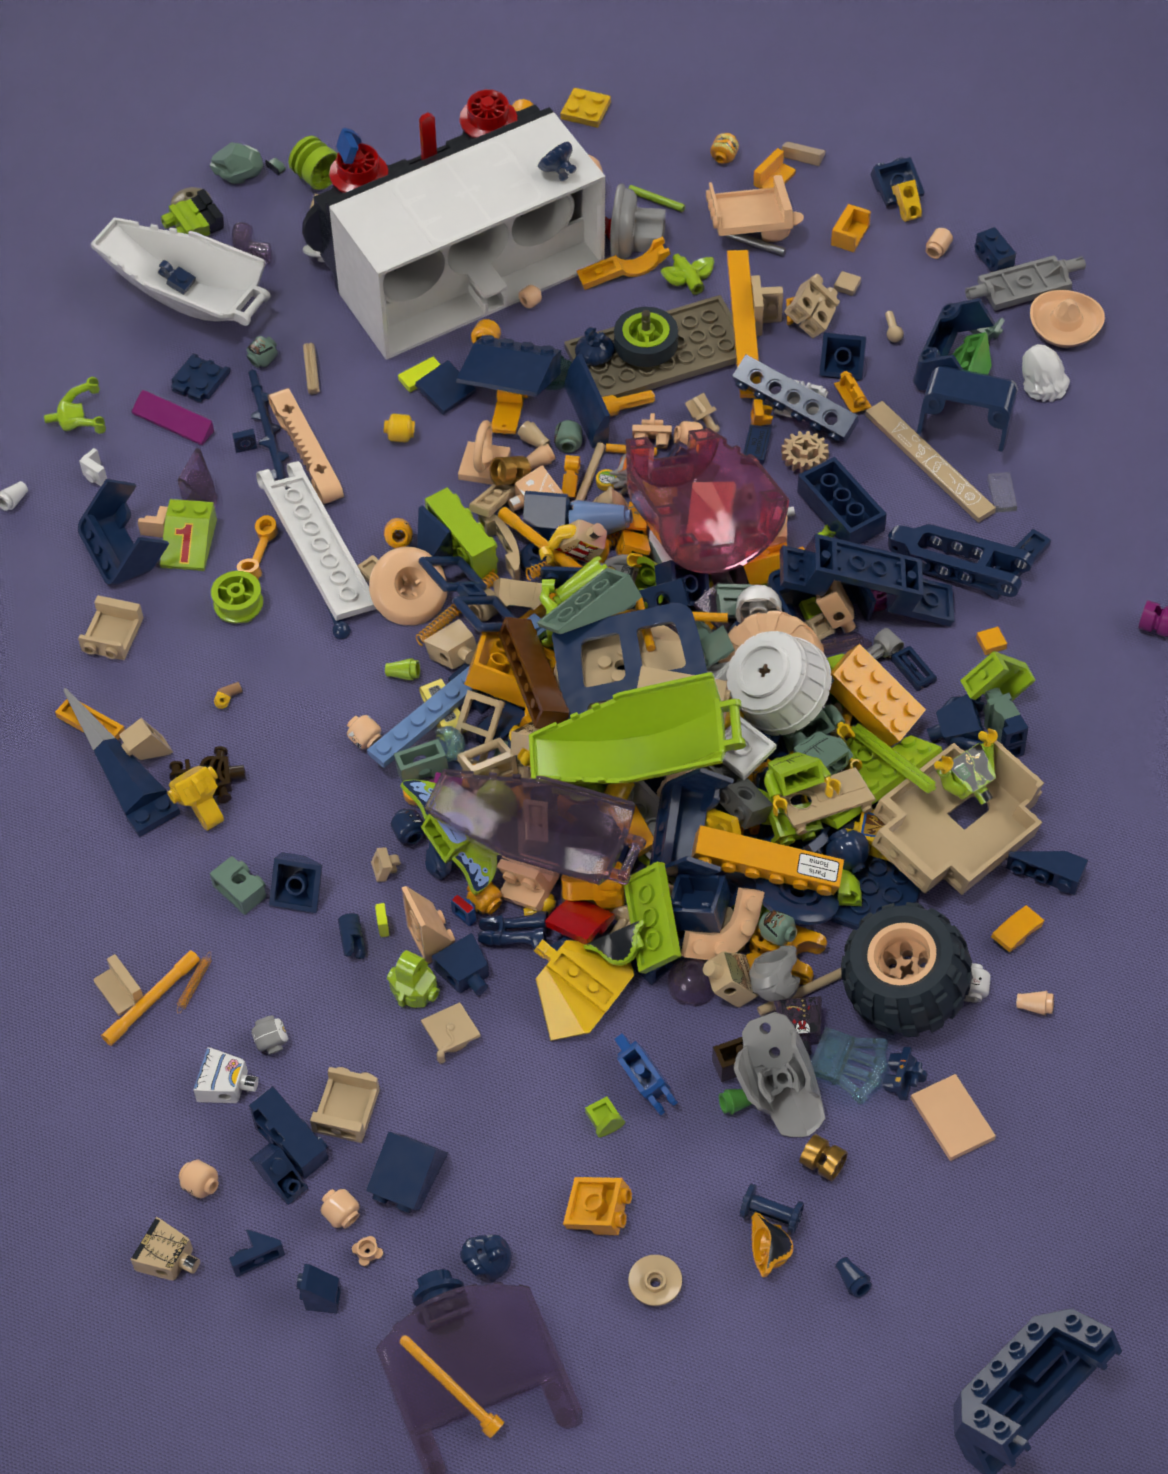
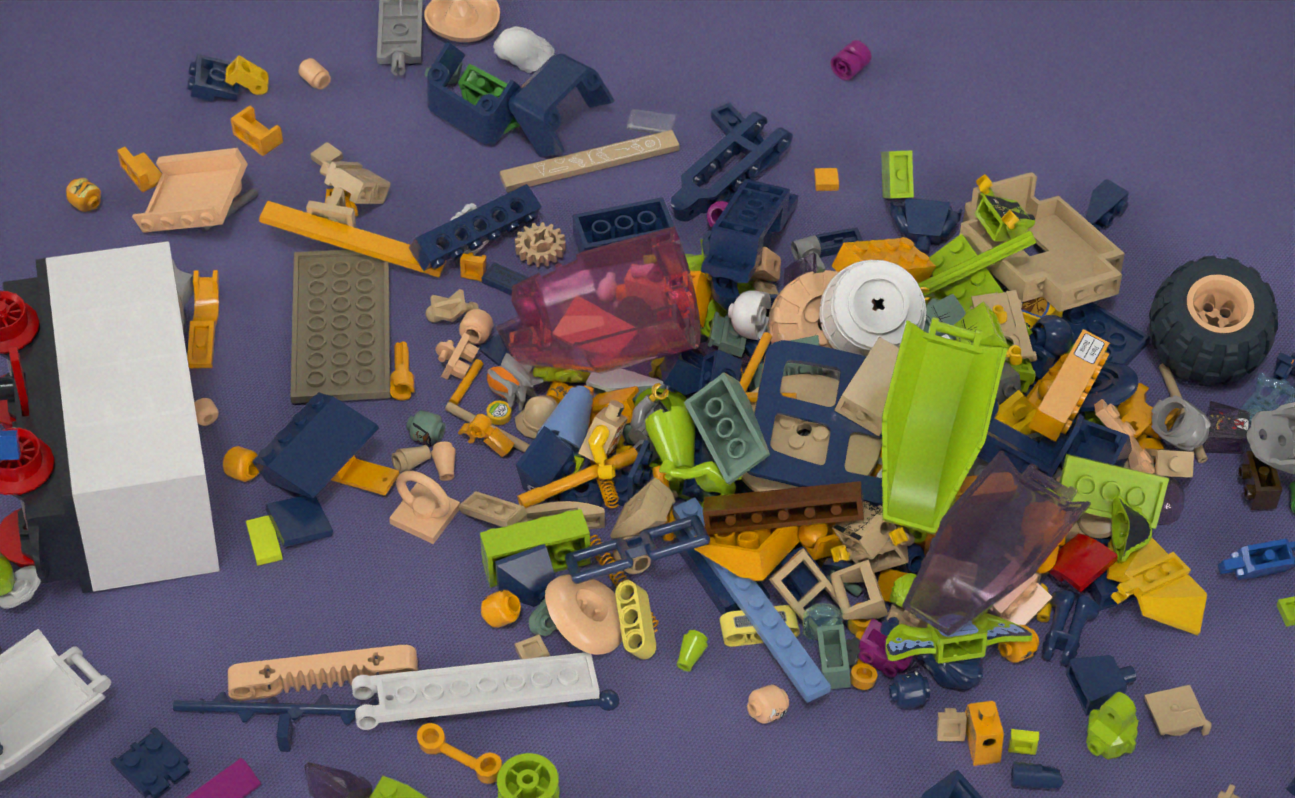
camera: 75 degrees left, 5 degrees down
(262, 351) = (151, 685): sand green head -> none
(311, 368) = (199, 644): tan axle -> none
(378, 885) = (984, 724): none -> light orange torso
(399, 428) = (342, 574): yellow head -> none
(413, 620) = (643, 628): none -> light yellow beam
(425, 924) = (1054, 699): light nougat slope -> none
(452, 645) = (683, 591): tan torso -> none
(463, 909) = (1029, 666): blue plate -> none
(508, 469) = (459, 484): pearl gold wheel -> none
(537, 480) = (494, 471): light nougat torso -> none
(558, 161) = (136, 264): dark blue hair -> none
(587, 402) = (394, 392): dark blue slope -> none
(595, 347) = (319, 370): dark blue hair -> none
(646, 336) = (333, 319): wheel -> none
(692, 274) = (243, 270): lime plant -> none
(777, 927) = (1135, 406): sand green head -> none
(803, 153) = (126, 137): tan slope -> none
(842, 354) = (429, 182): dark blue slope -> none
(851, 393) = (470, 191): light orange hinge -> none
(894, 332) = (415, 138): tan bar -> none
(994, 250) = (349, 37): dark blue brick -> none
(1006, 721) = (942, 184): hips -> none
(1017, 928) = (1159, 252): light orange slope -> none
(1036, 1002) = (1244, 254): light nougat cone -> none

